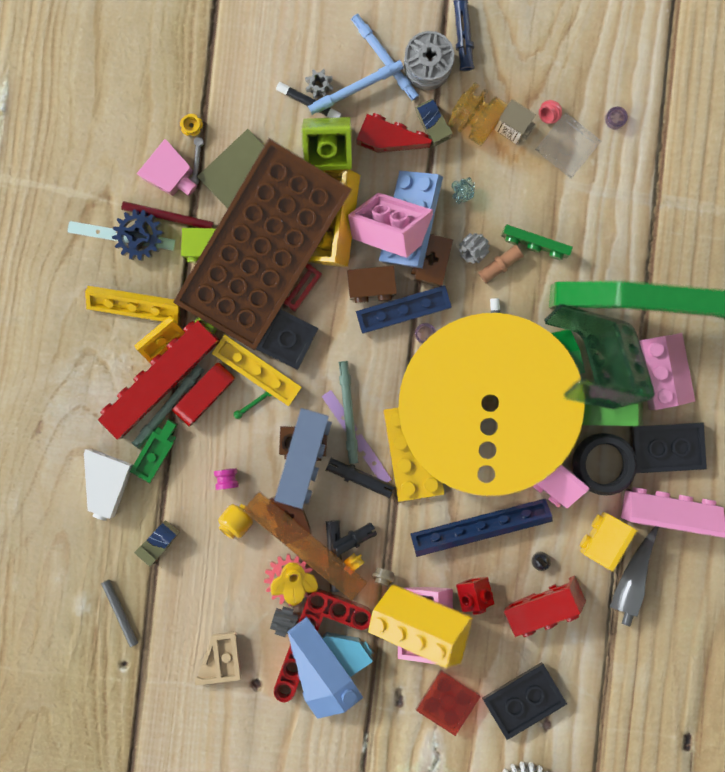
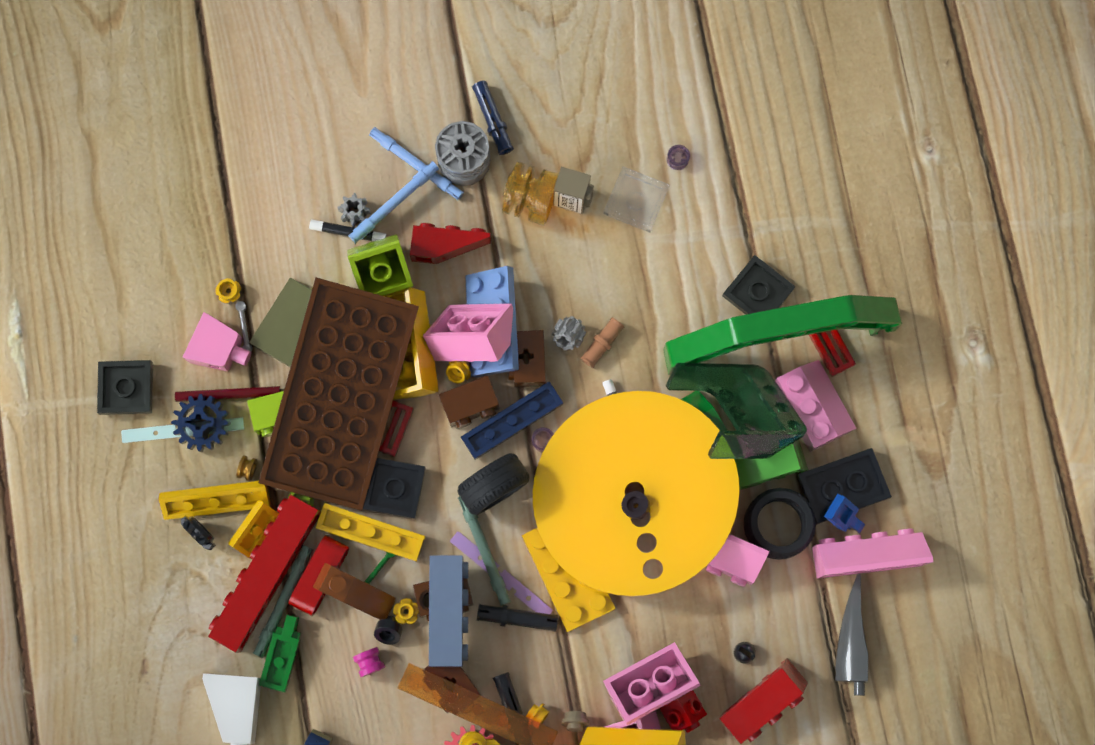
camera: 15 degrees left, 10 degrees down
(81, 185) = (125, 387): none -> pearl dark grey plate
(112, 329) = (198, 532): none -> black gear
(166, 285) = (246, 468): none -> pearl gold bush
(228, 417) = (354, 592): none -> dark orange slope
(235, 521) = (392, 707): yellow head -> none
(249, 457) = (388, 631): none -> black tile
(263, 441) = (399, 608): none -> yellow plate
(353, 539) = (529, 687): black axle -> none
(369, 254) = (458, 371): none -> yellow plate
(372, 361) = (493, 483): none -> black tyre
(433, 122) = (487, 215): leg -> none
(456, 567) = (651, 683): none -> bright pink slope
(463, 190) = (539, 276): clear light blue plant -> none
(481, 527) = (669, 630): dark blue plate -> none
(484, 410) = (630, 500): none -> black tile
(536, 242) = (633, 308): green plate -> none
(550, 111) = (607, 170): coral plate -> none
(607, 540) = (808, 606): yellow slope -> none
(649, 257) = (758, 288): none -> pearl dark grey plate
(661, 472) = (843, 515): none -> blue plate
(688, 332) = (825, 357): none -> red tile

